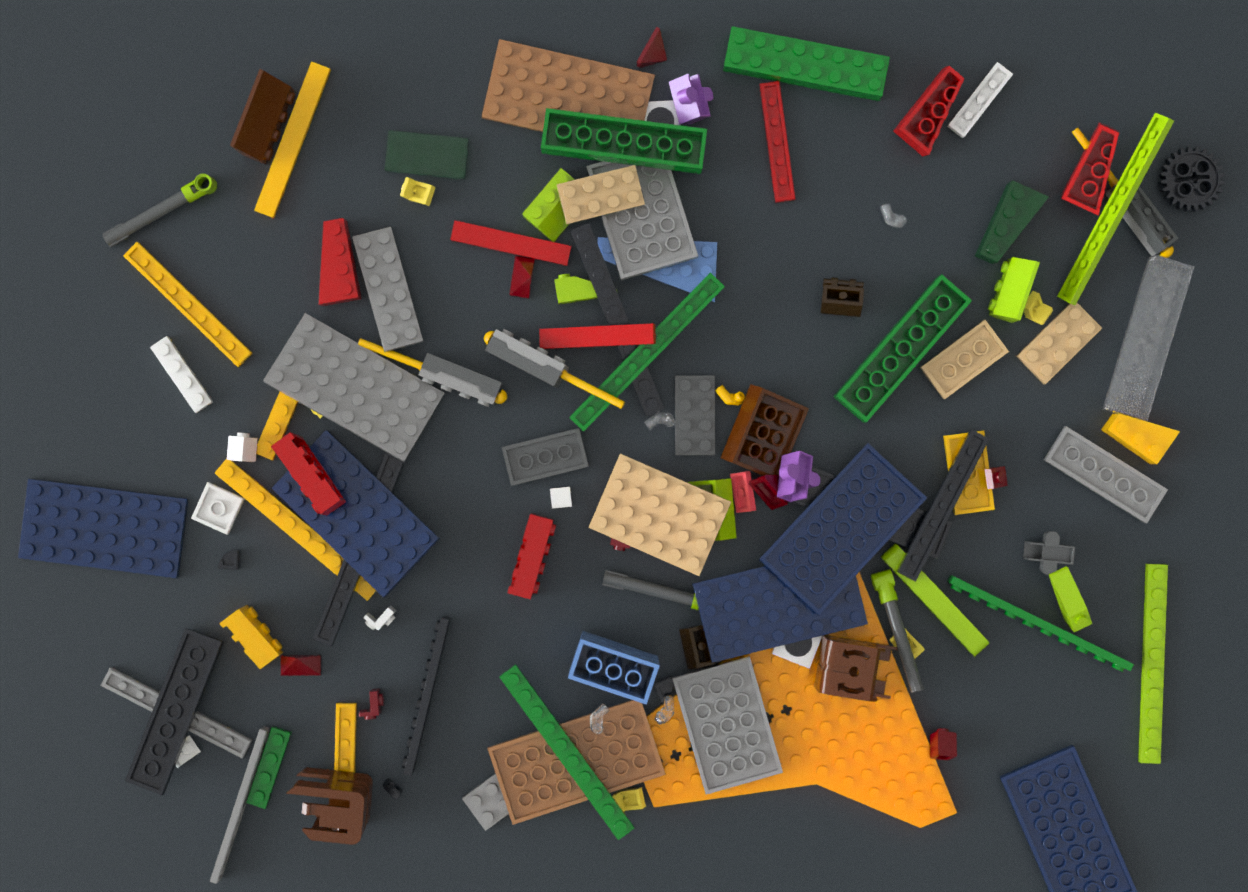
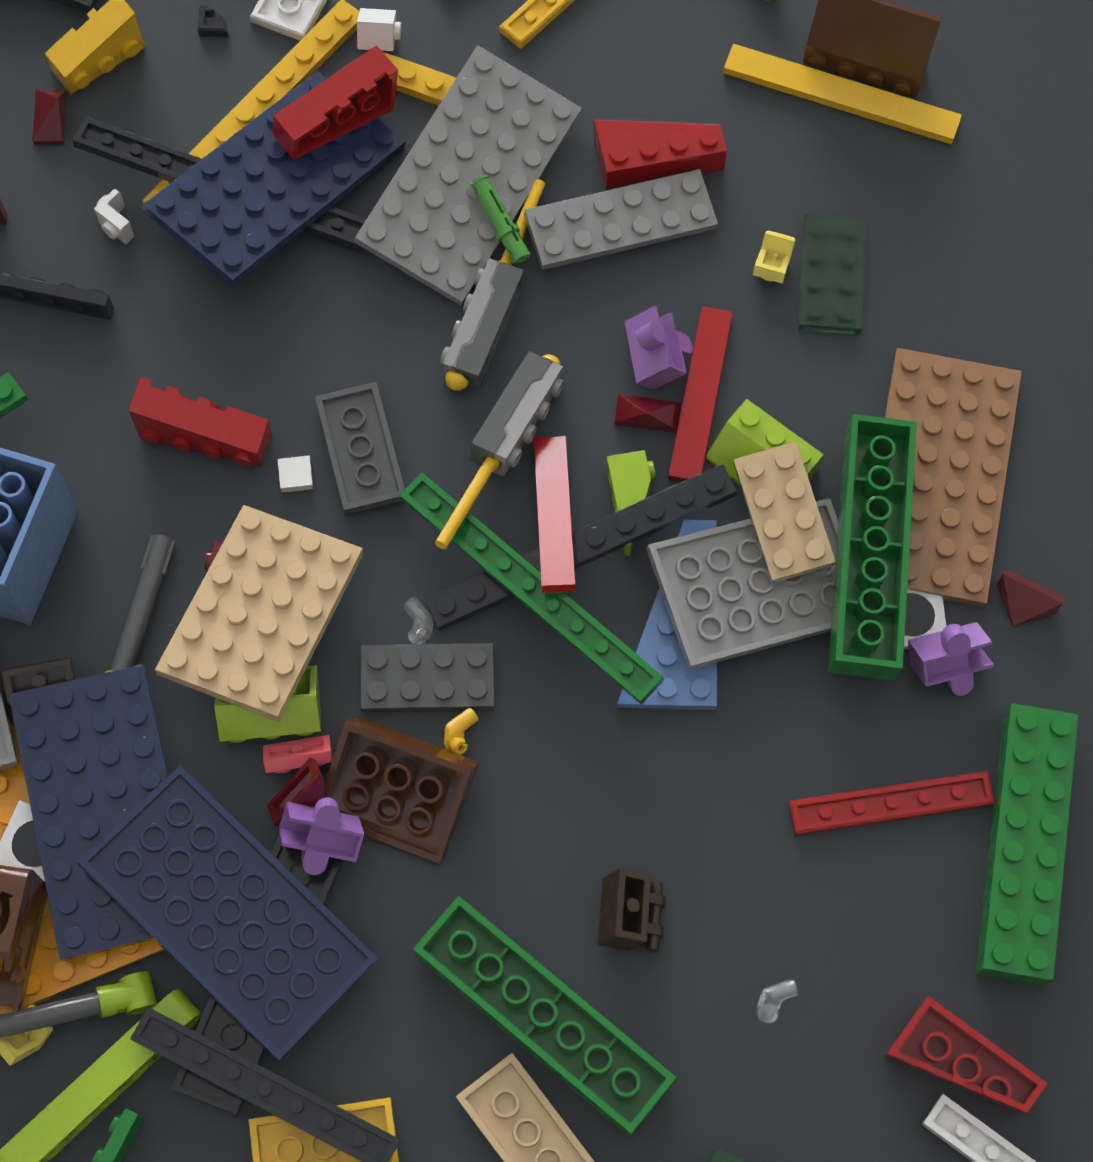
camera: 90 degrees right, 20 degrees down
(392, 366) = (506, 230): none -> bright green pin
(482, 269) = (656, 348): none -> medium lavender piece

